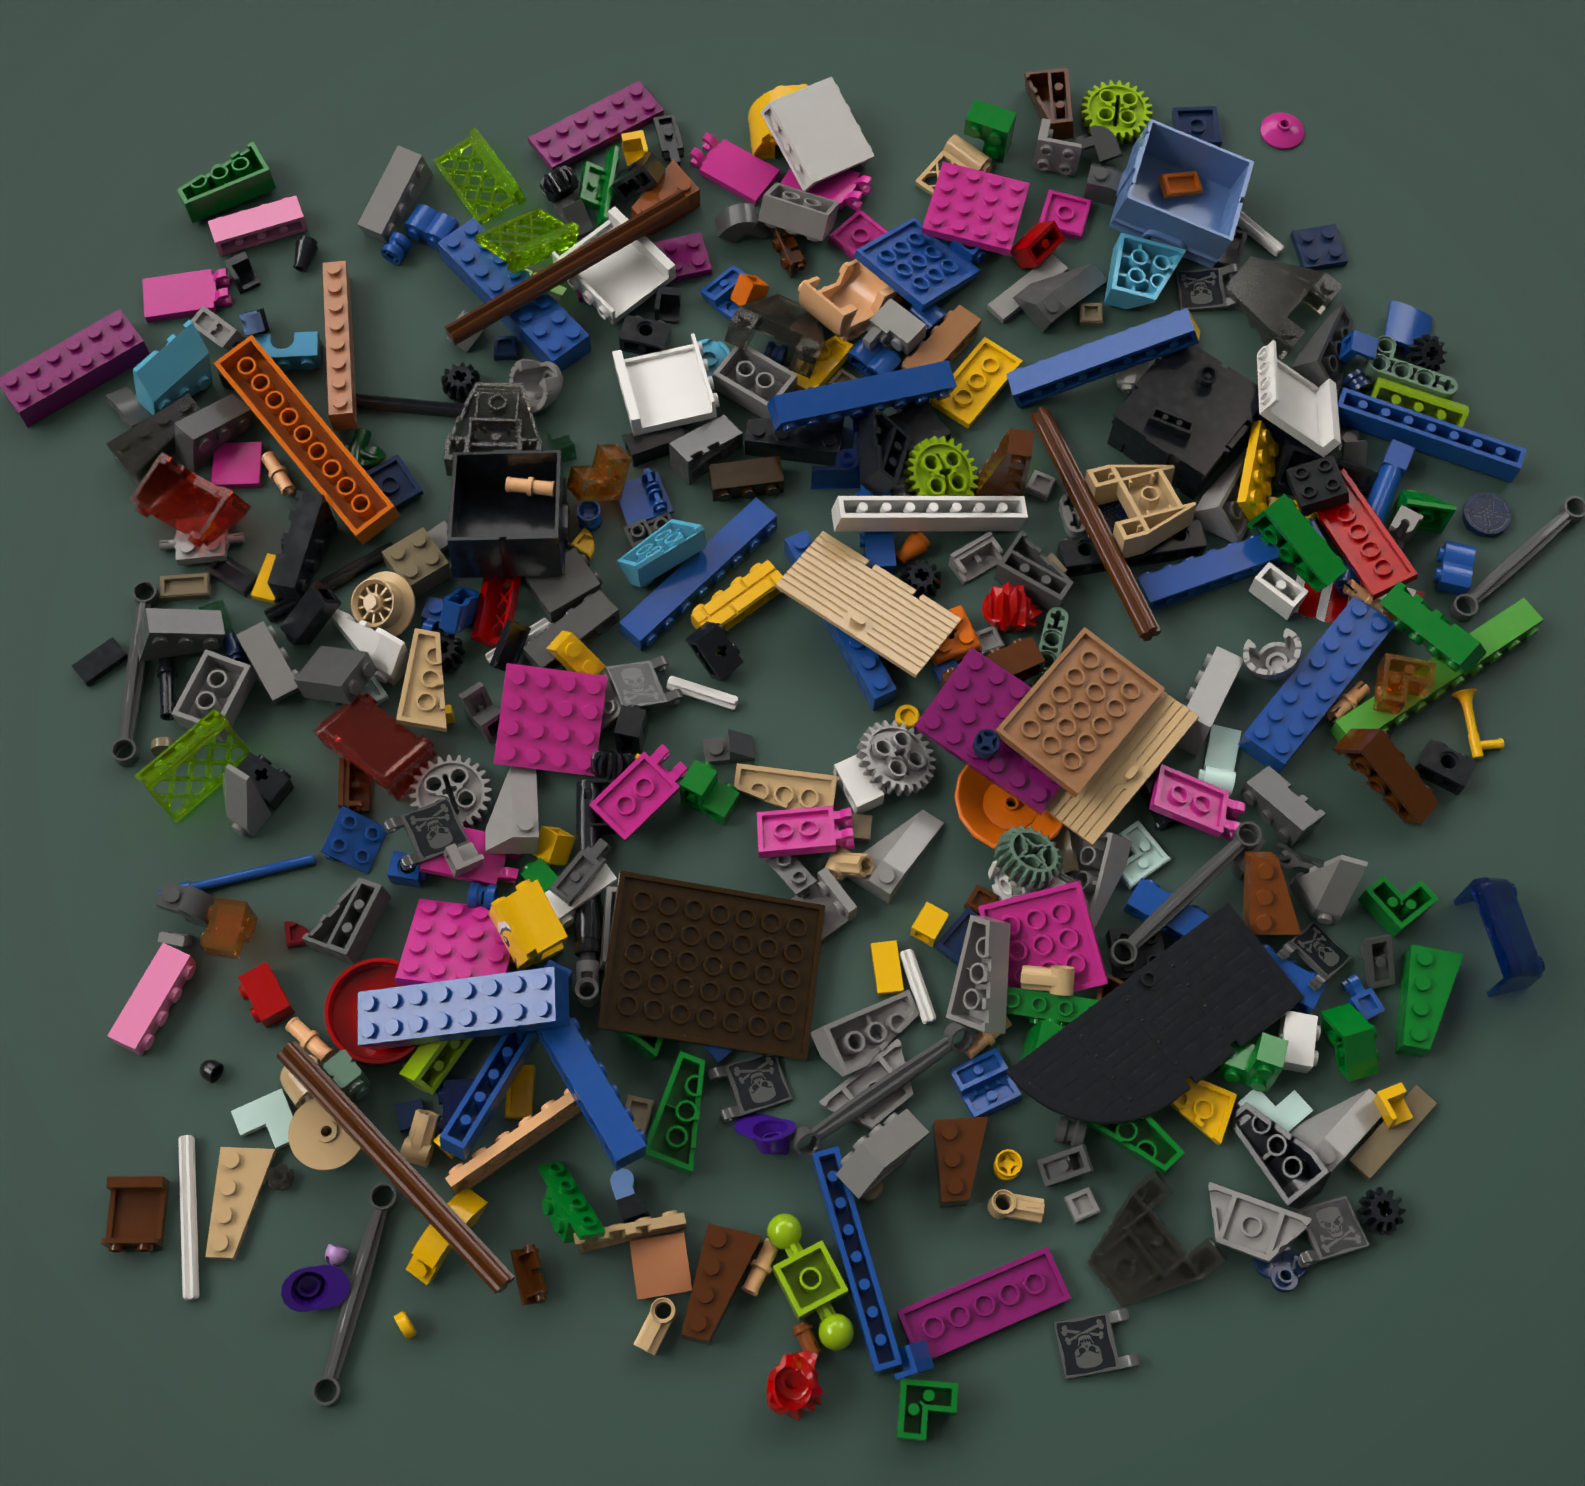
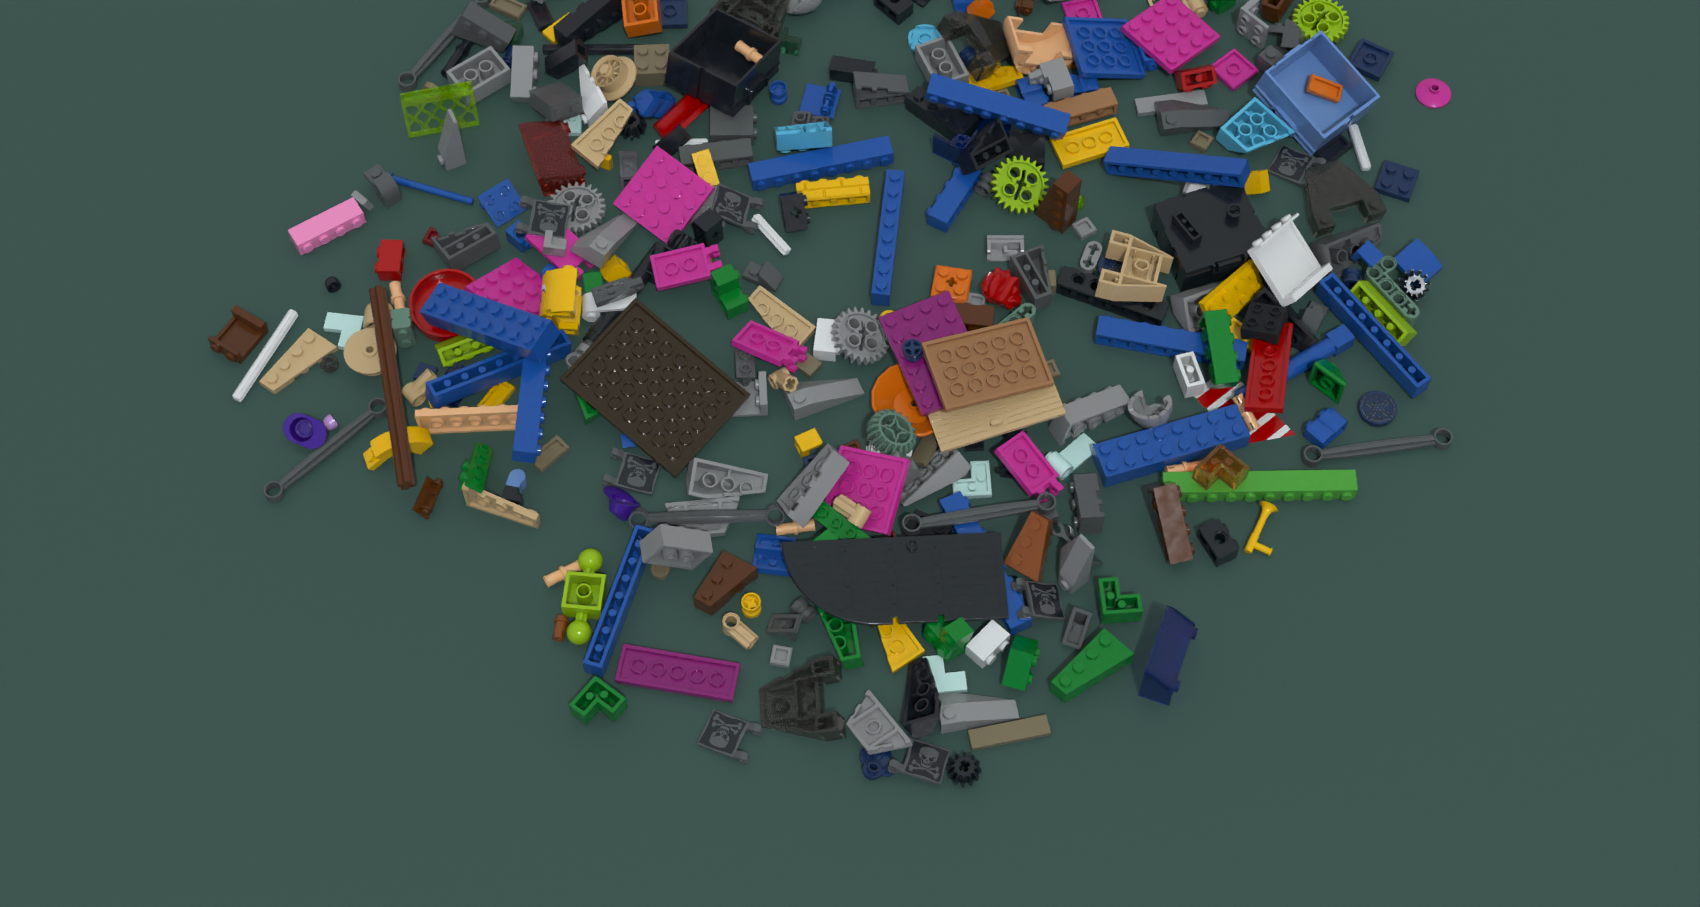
camera: 35 degrees right, 5 degrees down
(99, 661) = (429, 23): black tile -> none
(228, 927) = (395, 208): clear orange brick -> none
(277, 782) = (473, 140): black brick -> none
(353, 788) = (522, 173): reddish brown hinge -> none
(405, 1325) = (340, 482): yellow tile -> none
(584, 544) = (763, 109): yellow tile -> none
(602, 479) = (799, 73): clear orange brick -> none
(654, 1328) = (479, 567): tan piece -> none
(660, 1265) = (506, 537): nougat slope -> none
(666, 388) = (879, 39): white panel -> none
(676, 1121) = (571, 463): green wedge -> none
(720, 1270) = (531, 563): reddish brown wedge -> none
(746, 478) = (893, 122): dark brown brick -> none
(794, 1385) = (532, 644): red hair -> none
(868, 604) = (908, 234): tan door -> none
(887, 968) = (764, 454): yellow tile -> none
(913, 546) = (968, 220): orange cone -> none
(915, 1359) = (612, 673): blue panel -> none
(917, 986) = (775, 476): white axle -> none
(922, 578) = (958, 242): black gear -> none
(928, 513) = (989, 201): white brick -> none
(1095, 525) = (1094, 266): reddish brown axle -> none
(1362, 999) = (1049, 646): blue plate -> none
(1392, 1105) = (1019, 714): yellow panel -> none
(1404, 525) = (1303, 380): light grey hinge -> none
(1432, 629) = (1268, 449): green wedge -> none

